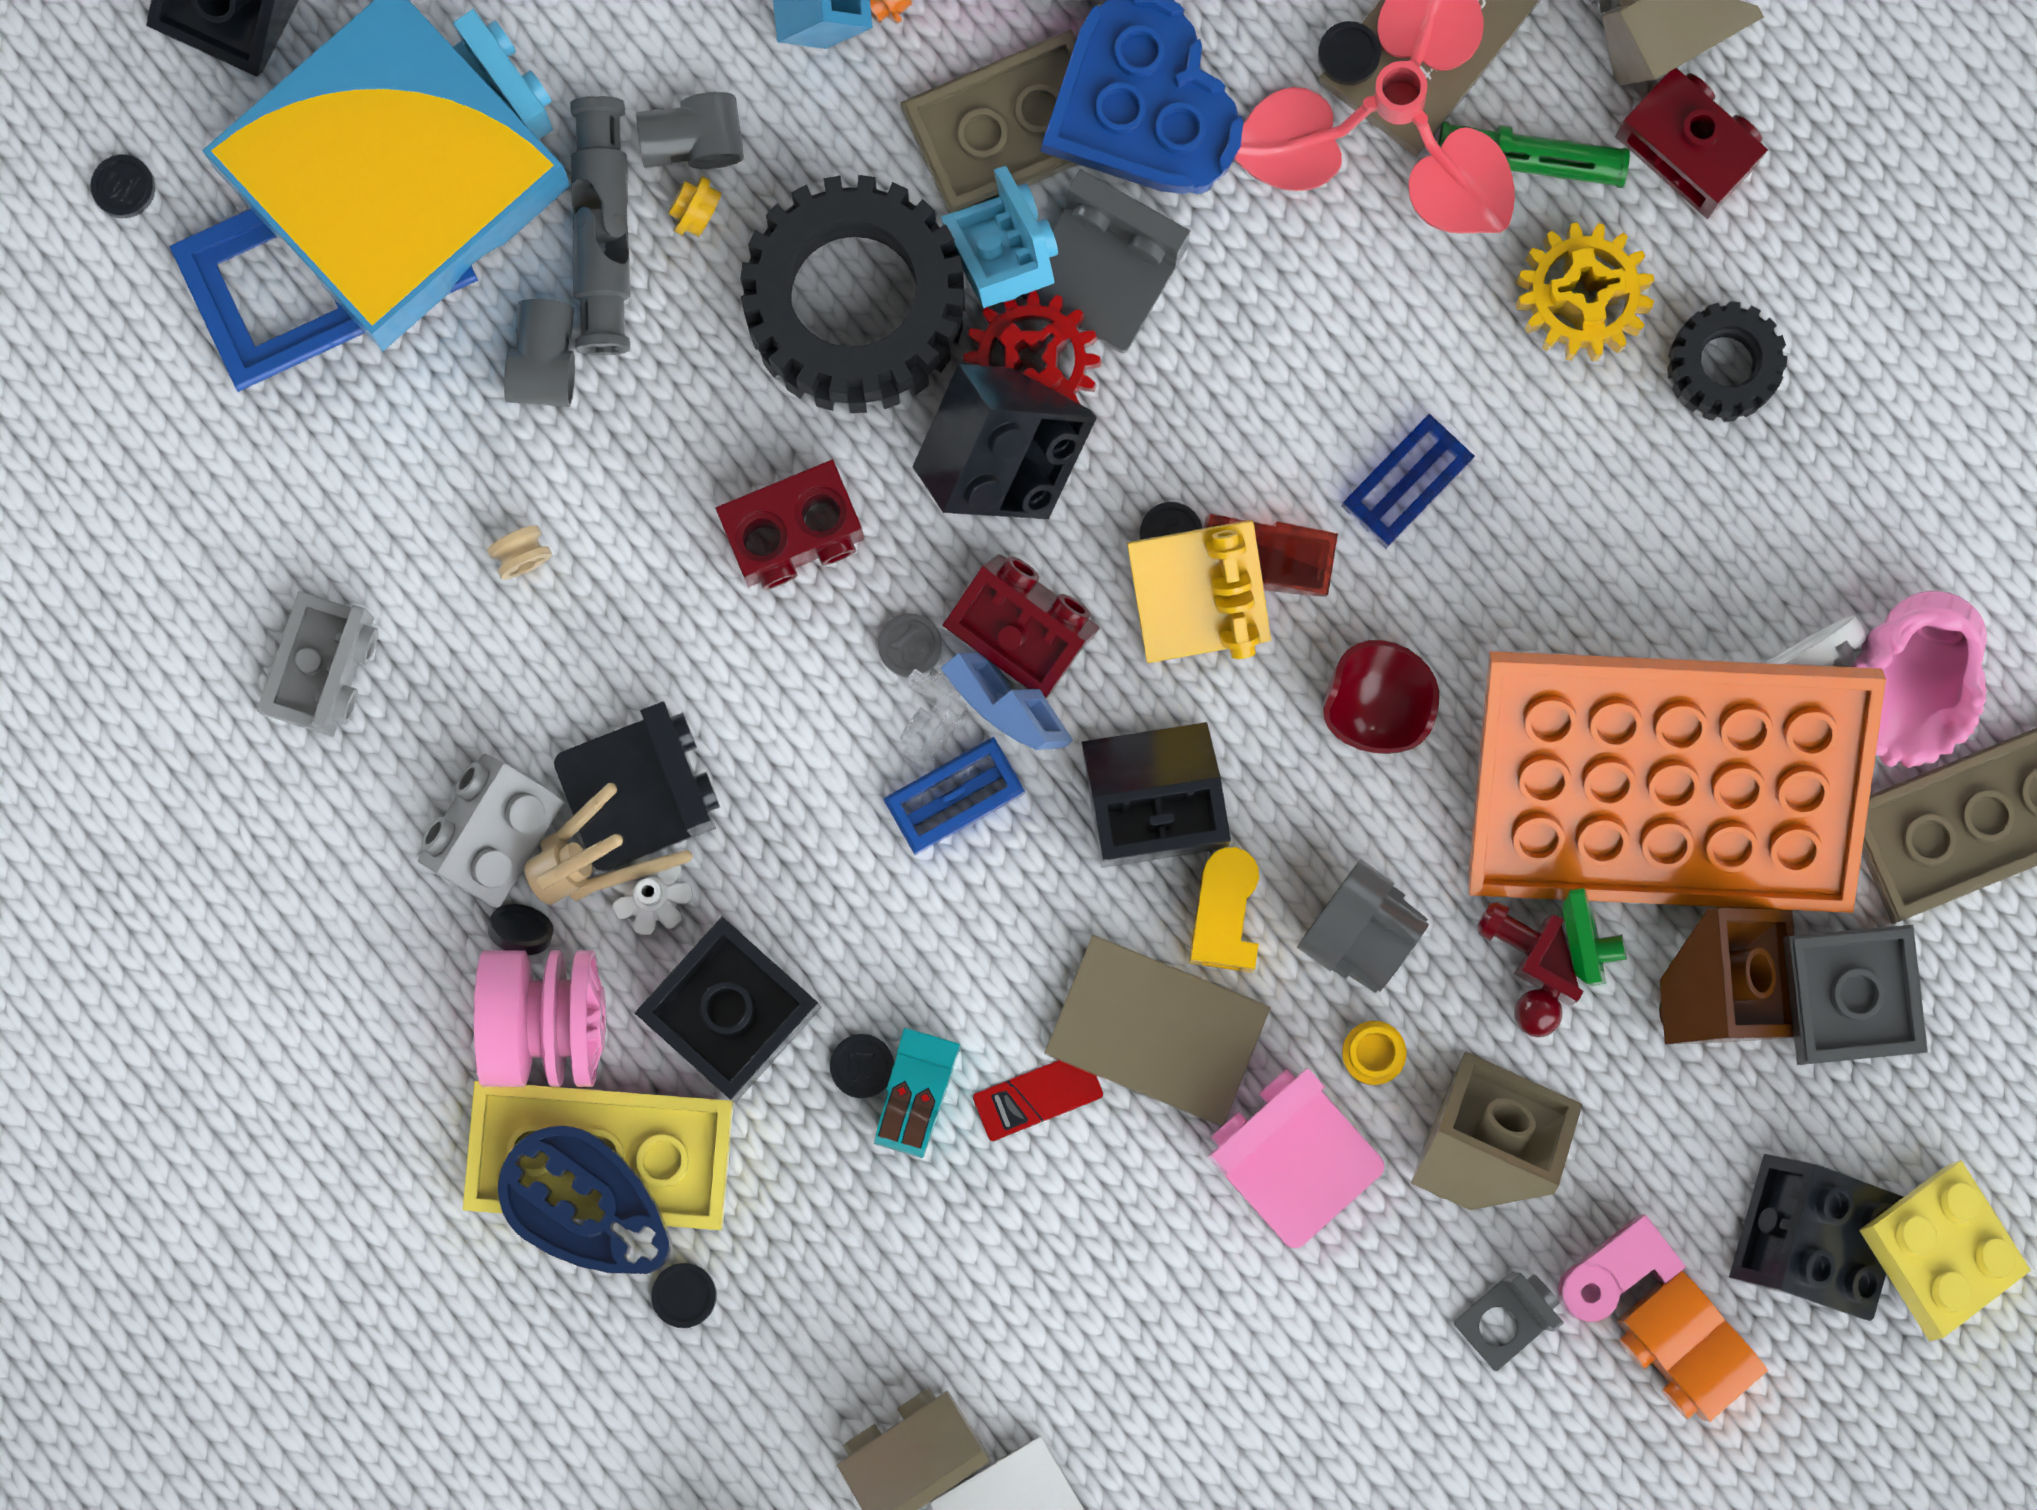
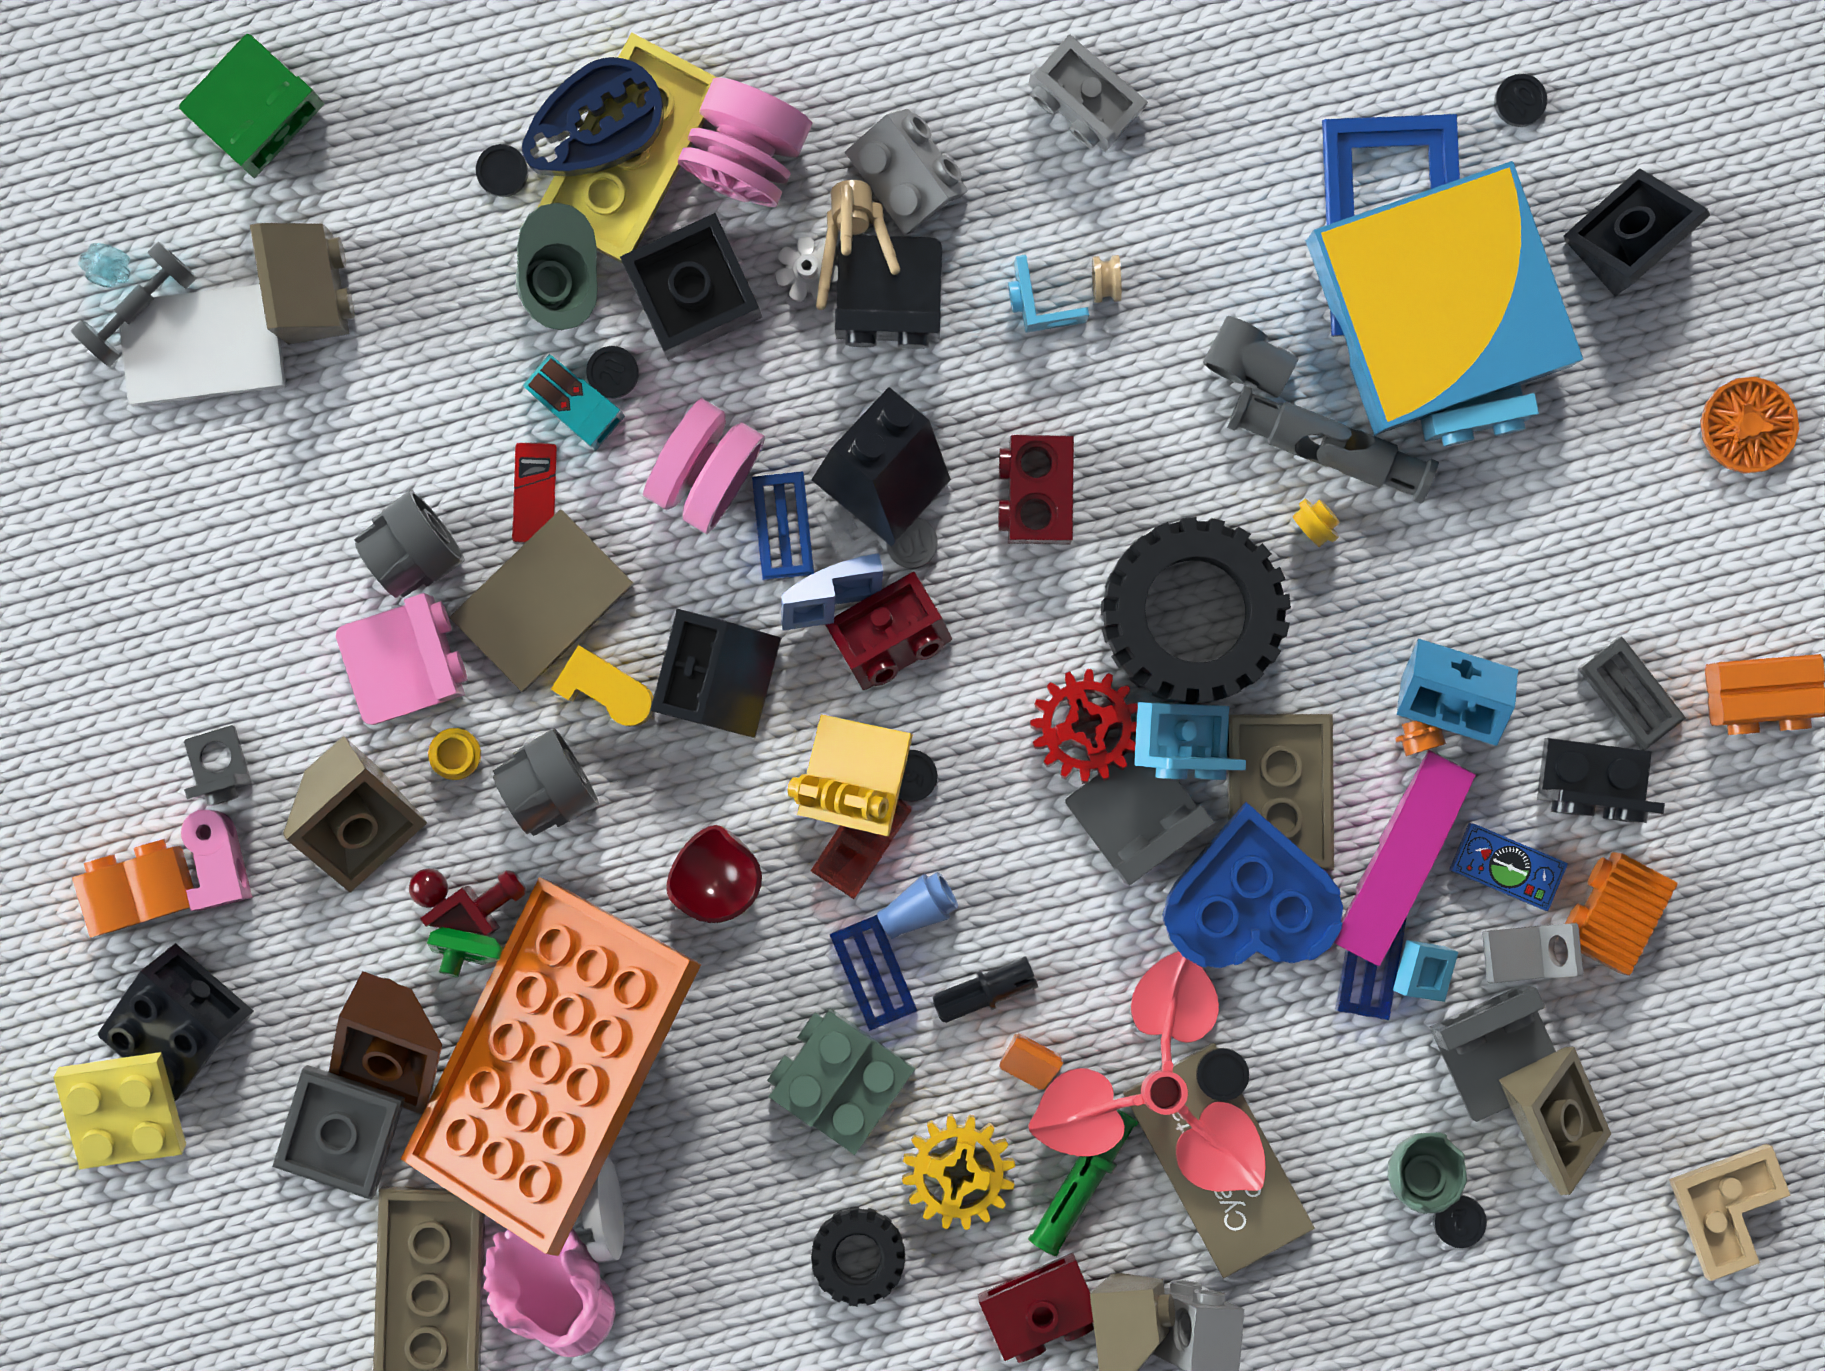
camera: 110 degrees right, 5 degrees up
(520, 929) = (821, 161): black piece -> none
(581, 634) = (1023, 301): none -> medium azure bracket
(699, 132) = (1374, 551): dark grey piece -> none
(772, 1172) = (557, 266): none -> sand green piece
(840, 702) = (885, 467): none -> black slope
(927, 912) = (698, 463): none -> bright pink wheel
(1001, 444) = (1028, 671): black slope -> none
(1164, 1203) = (408, 546): none -> dark grey piece
(1312, 459) = (920, 905): none -> medium blue cone
(1372, 348) = (985, 990): none -> black axle
(1428, 266) = (1030, 1061): none -> orange slope
(1543, 466) = (839, 1079): none -> sand green plate

